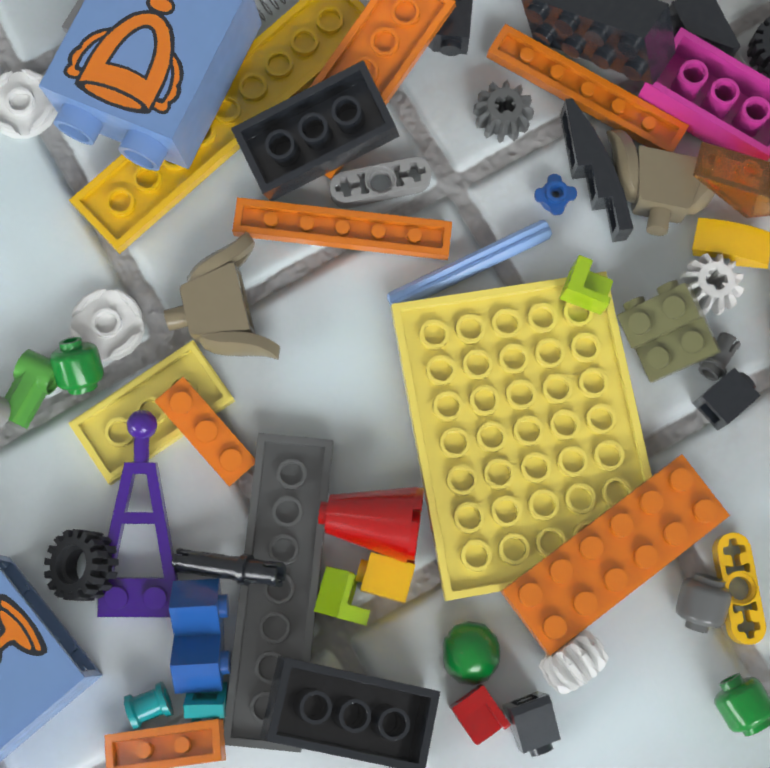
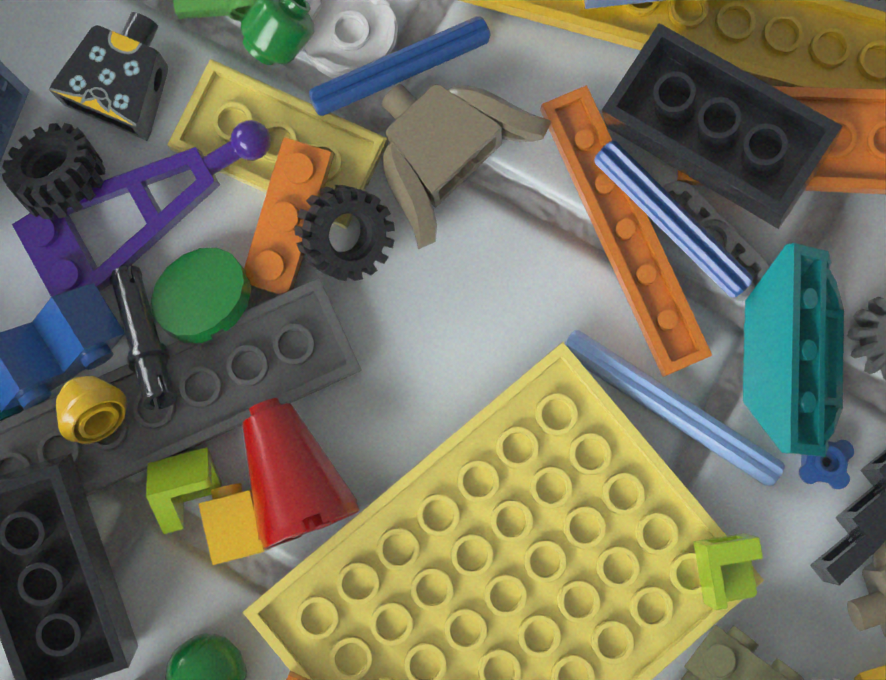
camera: 60 degrees right, 5 degrees up
(41, 491) = (115, 76): none -> black torso
(151, 305) = (399, 66): none -> blue axle
(223, 515) = (200, 295): none -> green tile
(227, 411) = (370, 242): none -> black tyre
(257, 625) = (89, 409): none -> yellow cone
(354, 194) = (673, 219): none -> axle
(478, 172) = (795, 351): none -> teal wedge

